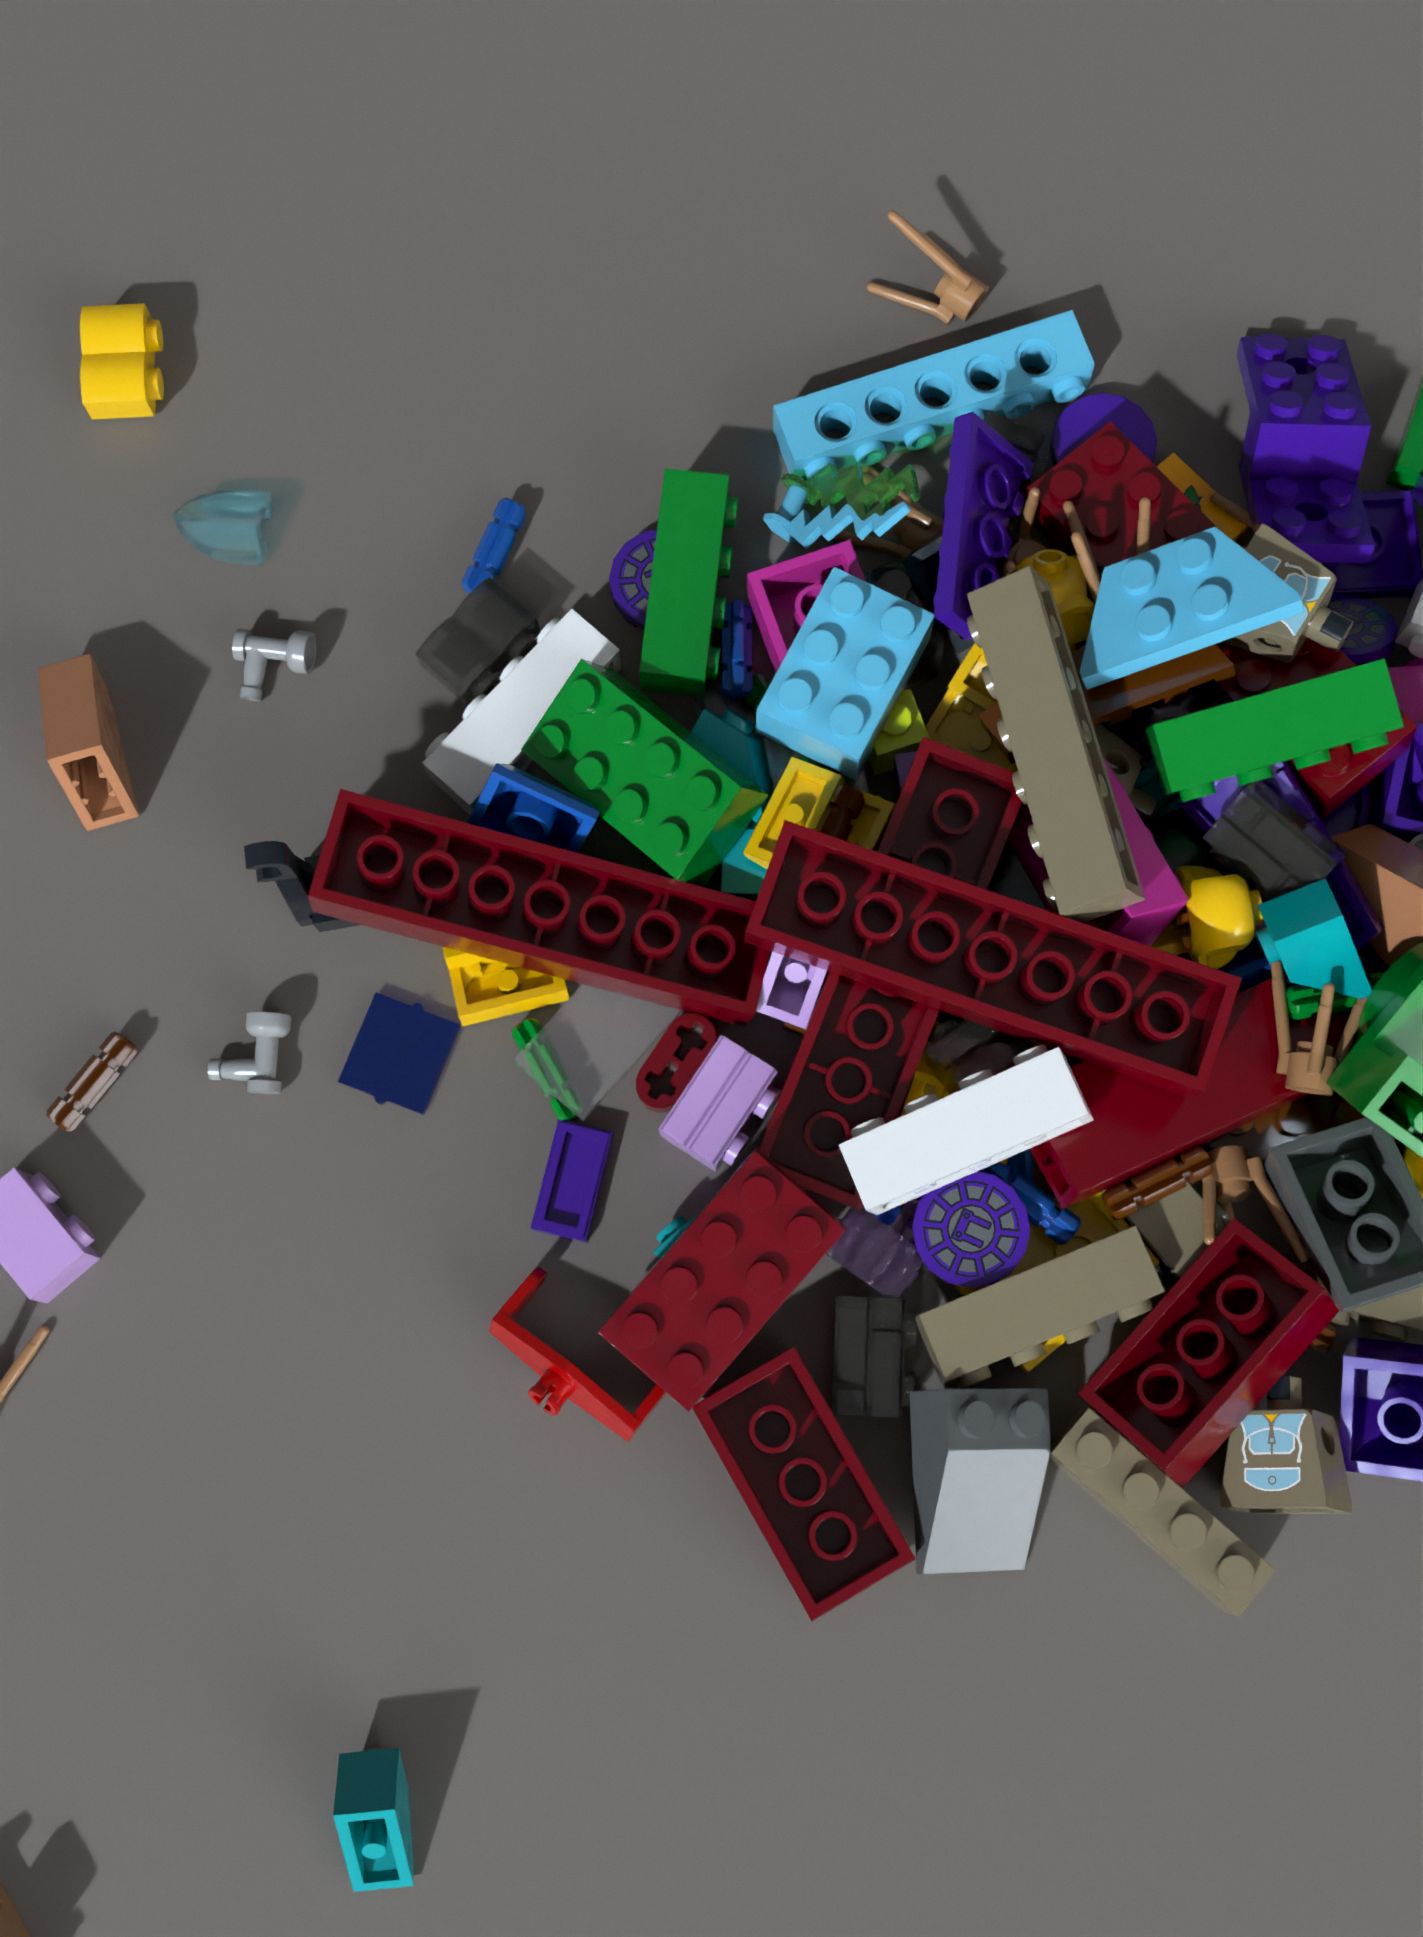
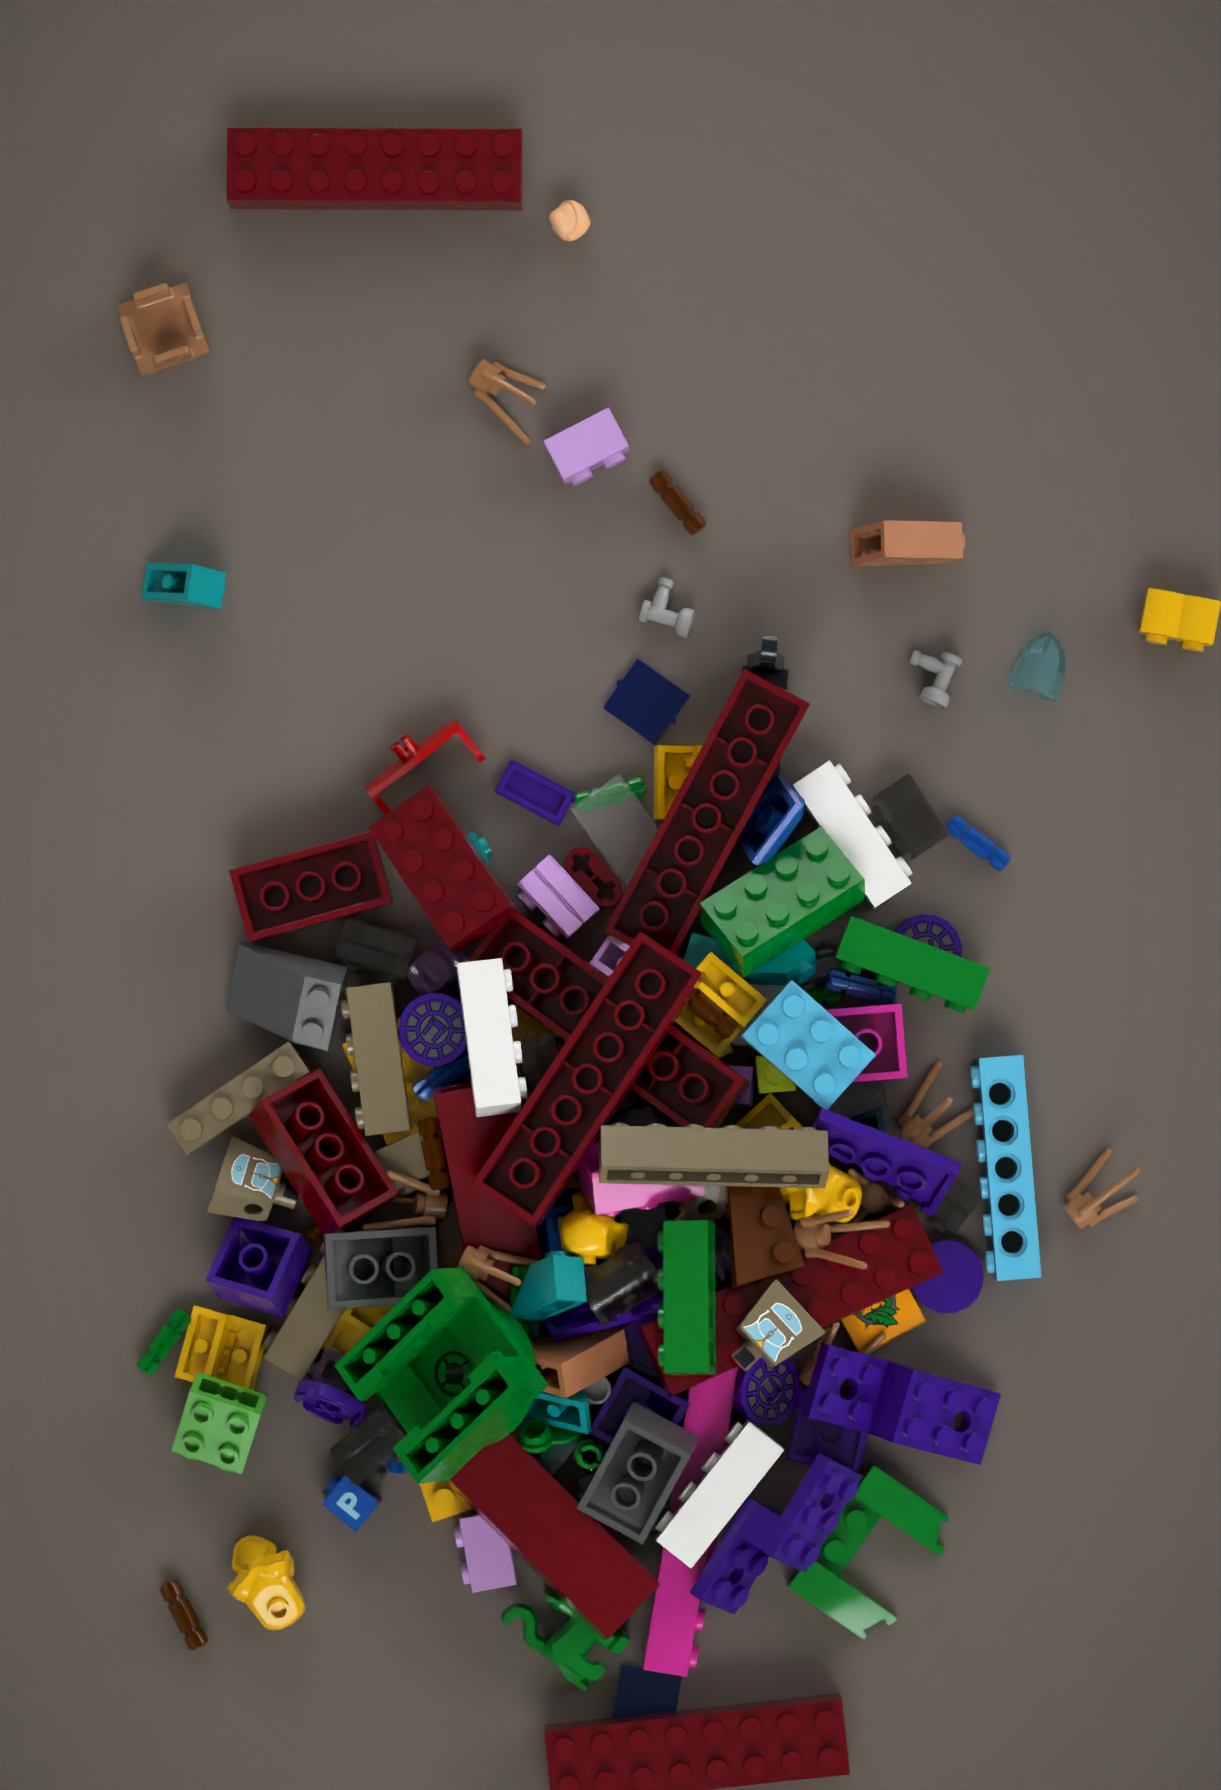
camera: 105 degrees right, 10 degrees up
(795, 524) = (957, 1074): piece -> none
(1180, 603) = (786, 1261): medium azure wing -> none

